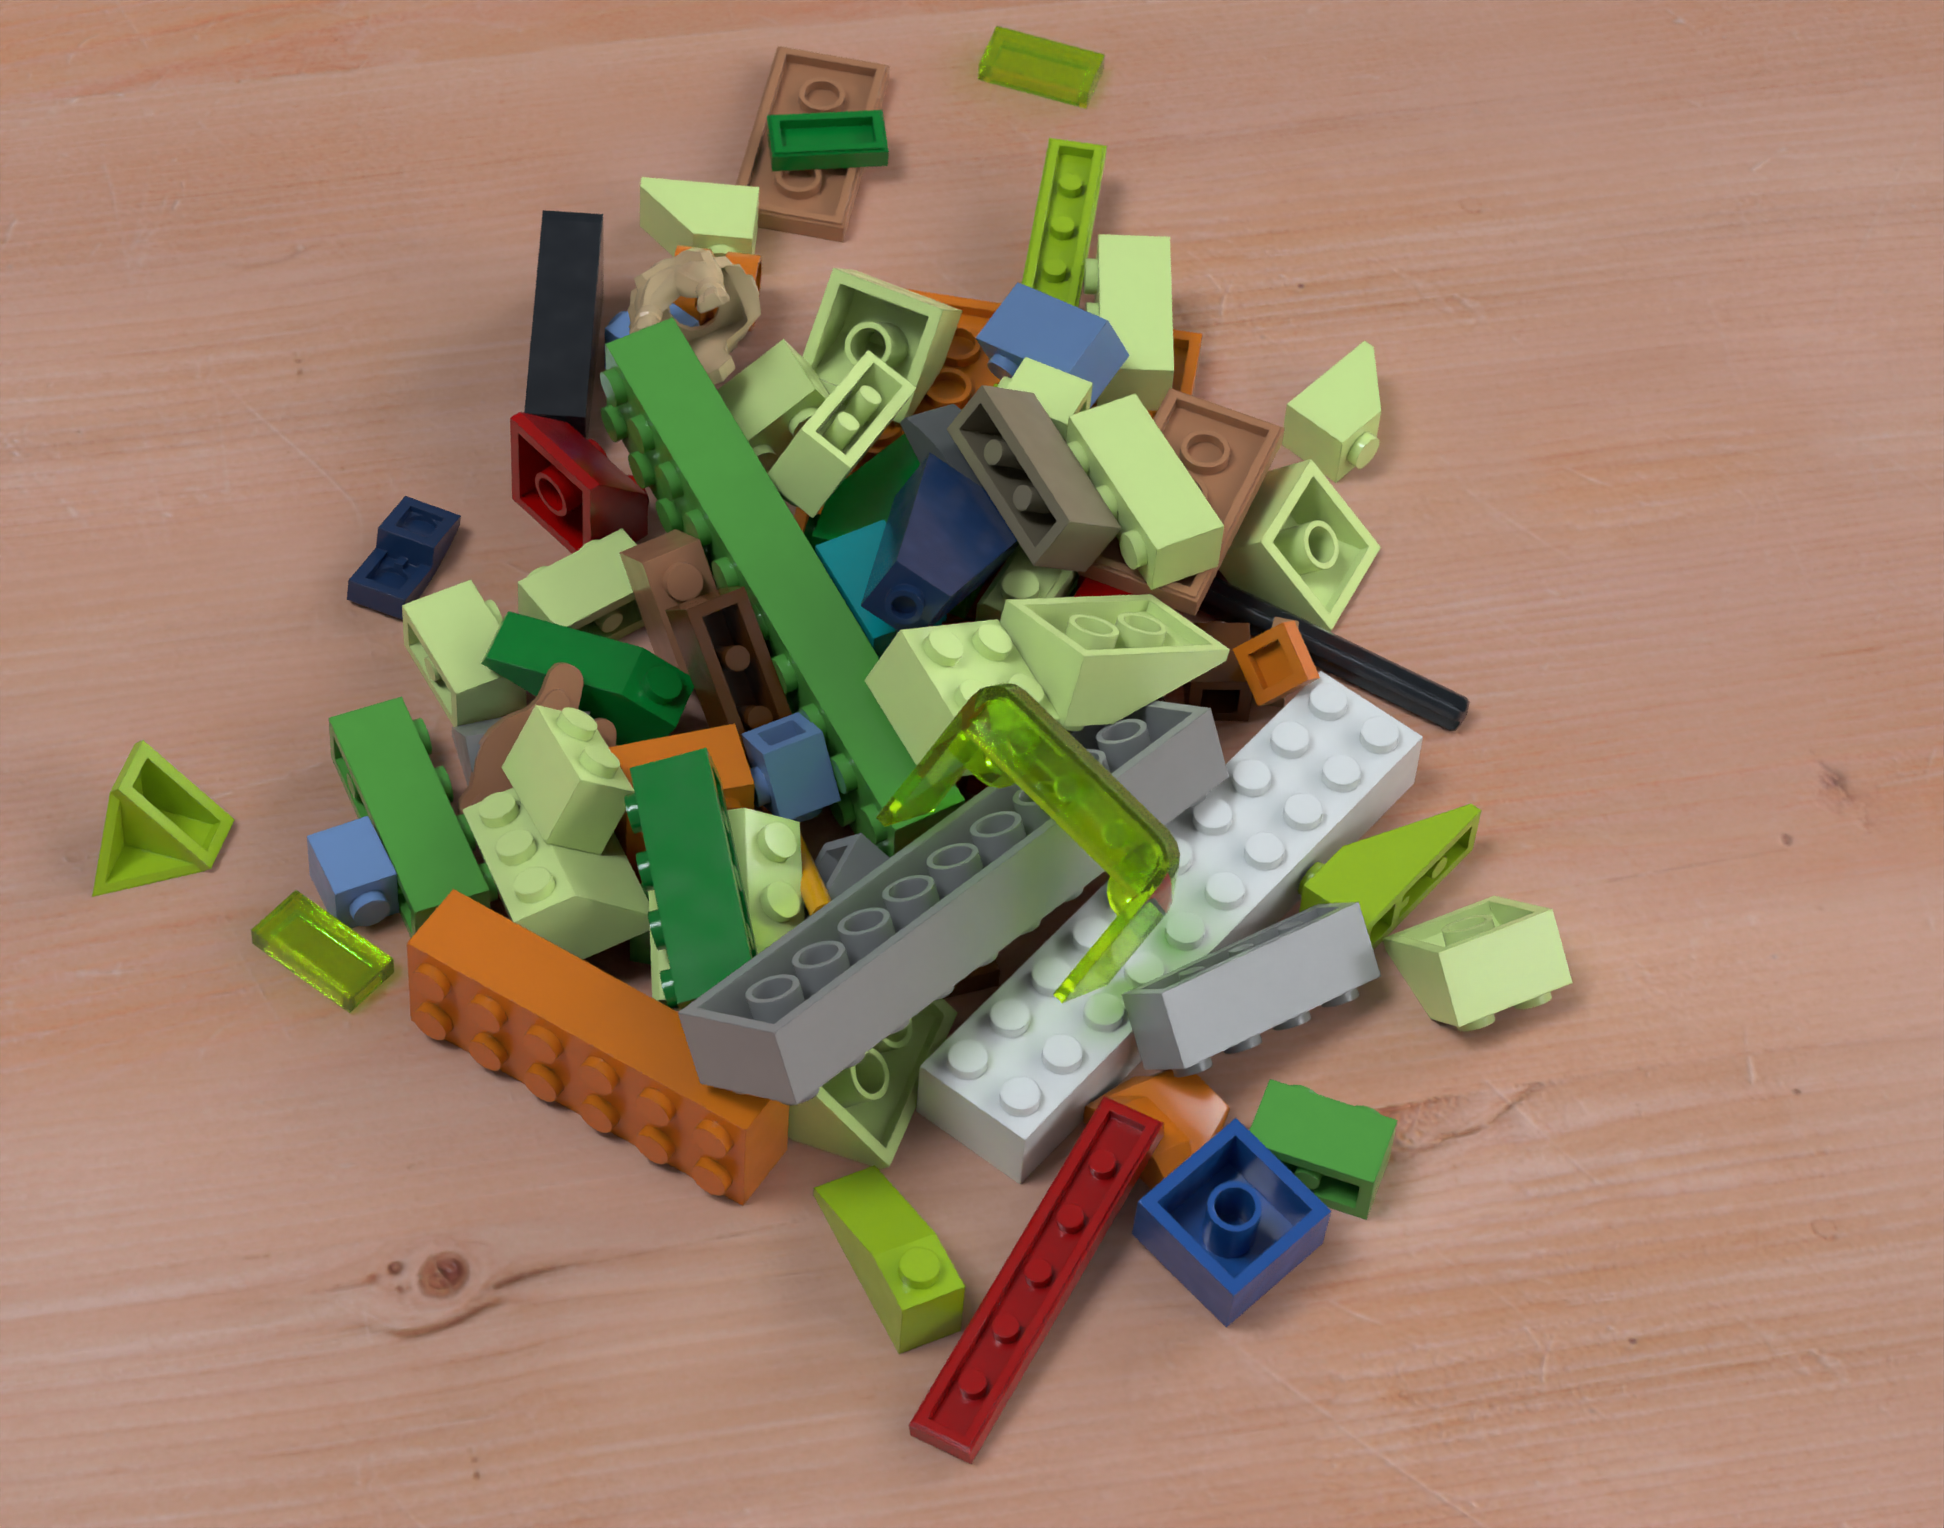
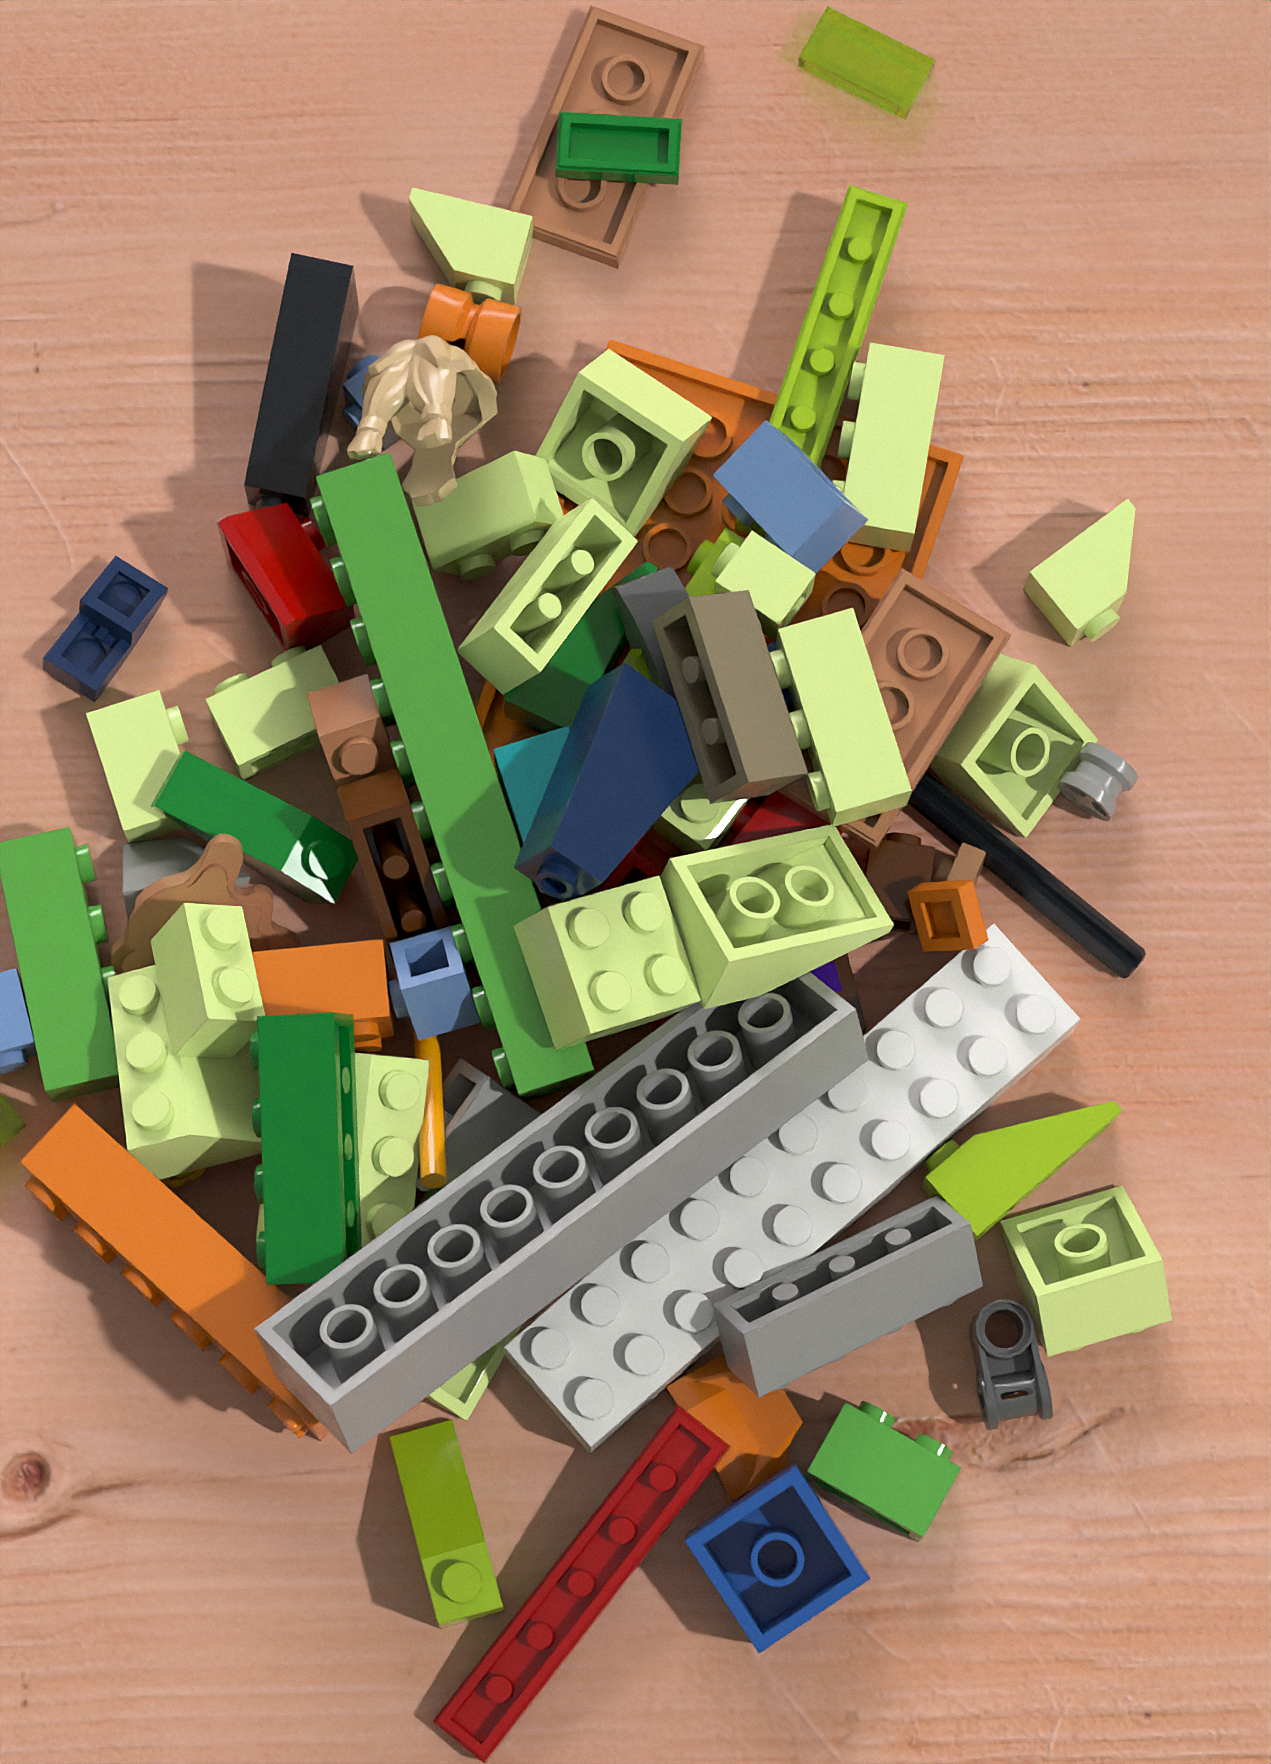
camera: 10 degrees right, 25 degrees up
(1013, 741) = (674, 1156): clear neon green windscreen -> none
(1389, 569) = (1097, 781): none -> light grey wheel
(1422, 1052) = (1009, 1369): none -> dark grey piece

